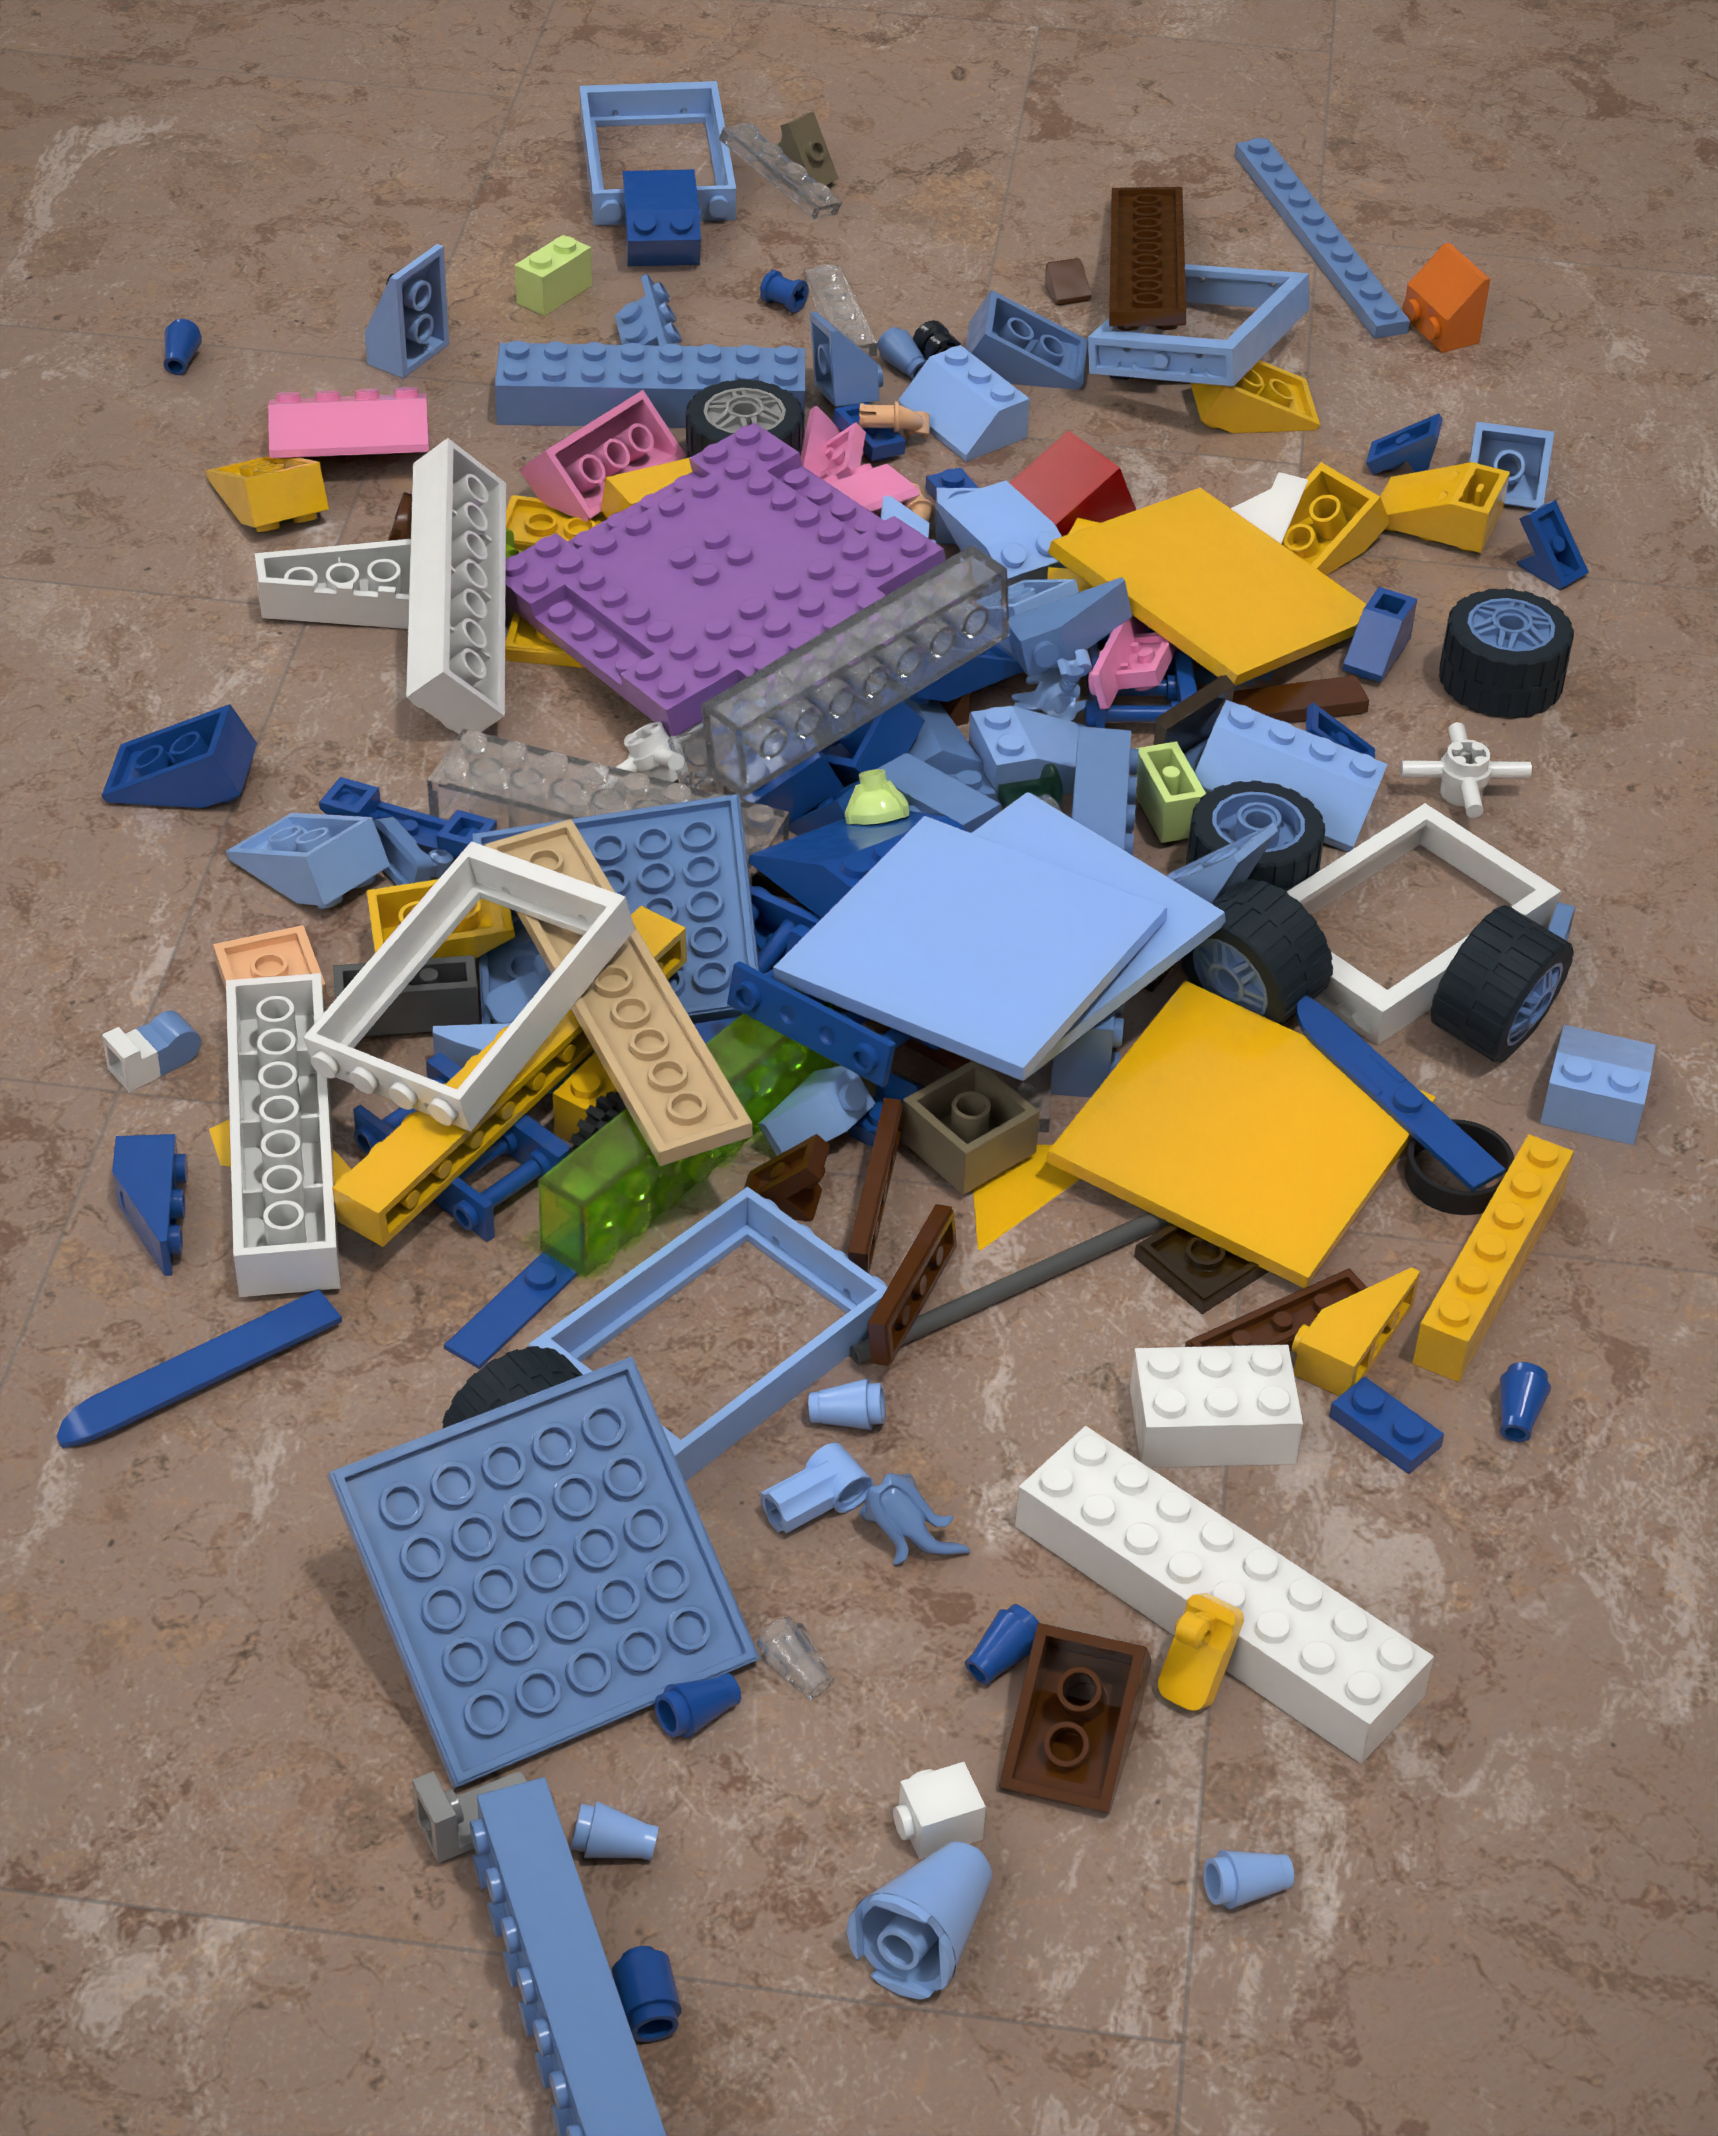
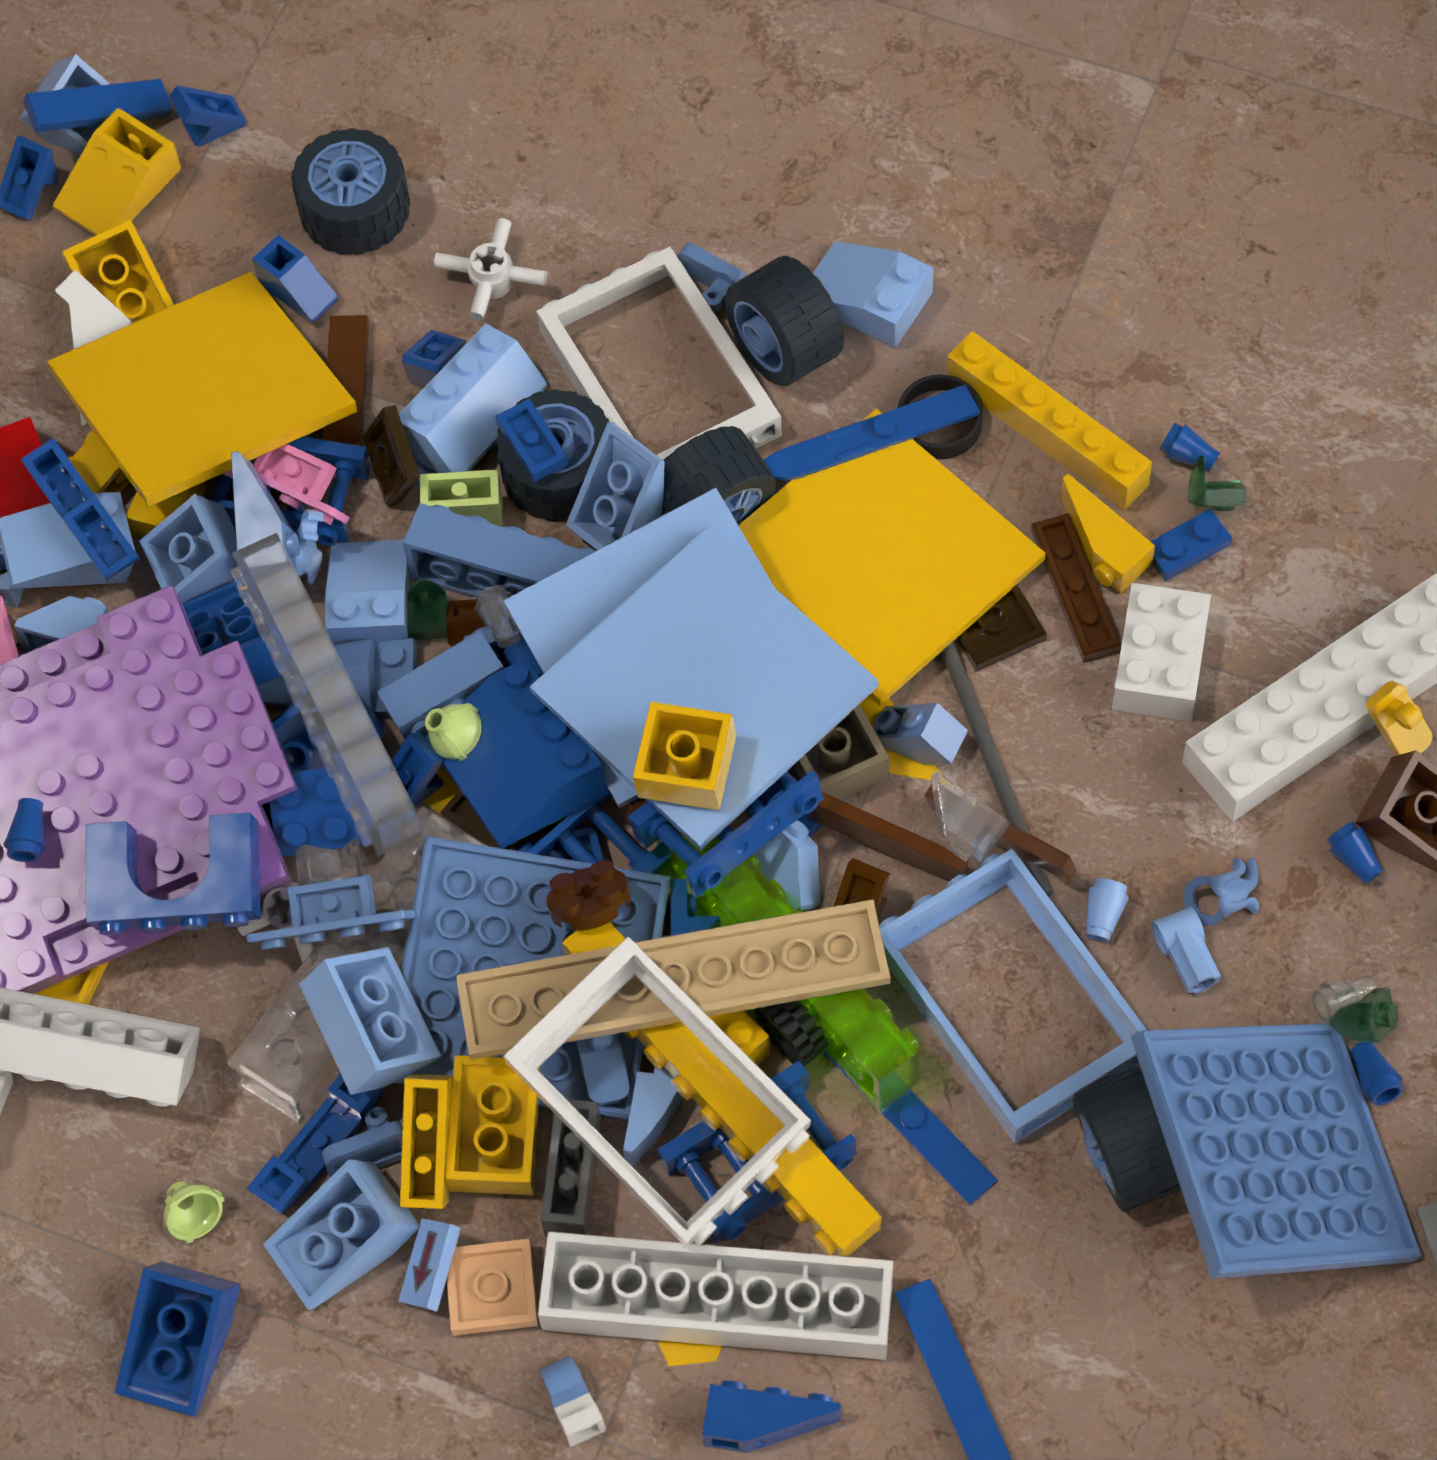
camera: 70 degrees left, 20 degrees up
(282, 917) = (429, 1264): none -> light blue tile
(311, 747) = (191, 1210): none -> yellowish green piece
(408, 860) = (425, 1141): none -> yellow brick
(524, 789) = (368, 1019): none -> light blue slope
(636, 753) = (331, 907): none -> medium blue bracket
(639, 658) = (225, 894): none -> arch
(654, 528) = (26, 834): none -> blue cone
(700, 913) = (588, 896): none -> reddish brown plate
(768, 1678) = (1368, 1019): none -> clear green plate
(862, 914) = (684, 755): none -> yellow brick
(905, 1222) = (965, 820): none -> clear slope
(1022, 1200) = (920, 732): none -> medium blue slope
(1045, 507) = (79, 509): none -> blue slope
(1241, 794) = (531, 440): none -> blue plate
(1463, 1426) = (1218, 494): none -> clear green plate
(1499, 449) = (95, 104): none -> blue tile

